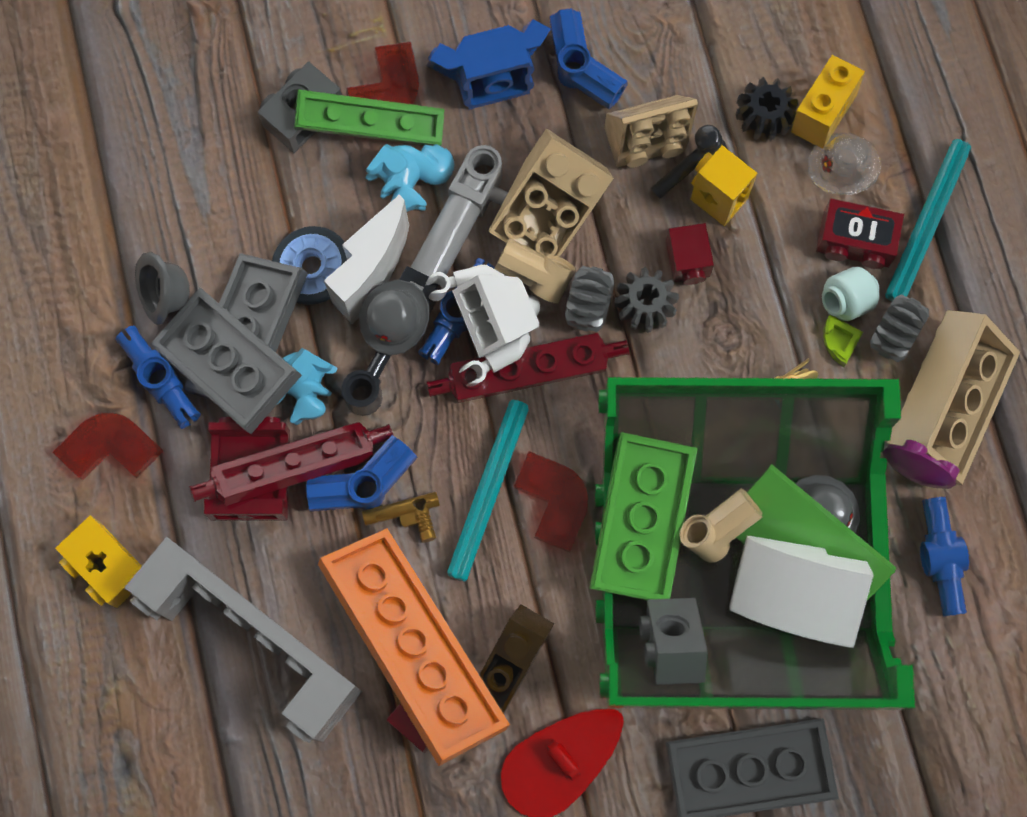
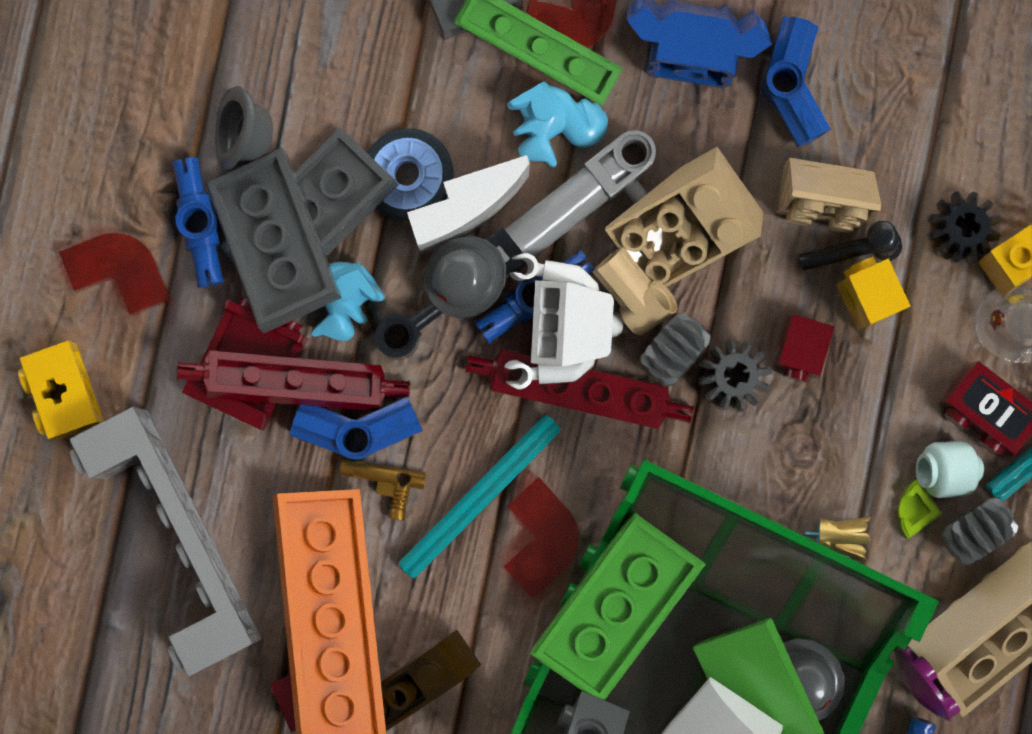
camera: 25 degrees right, 10 degrees up
(711, 534) = (690, 654): tan piece -> none

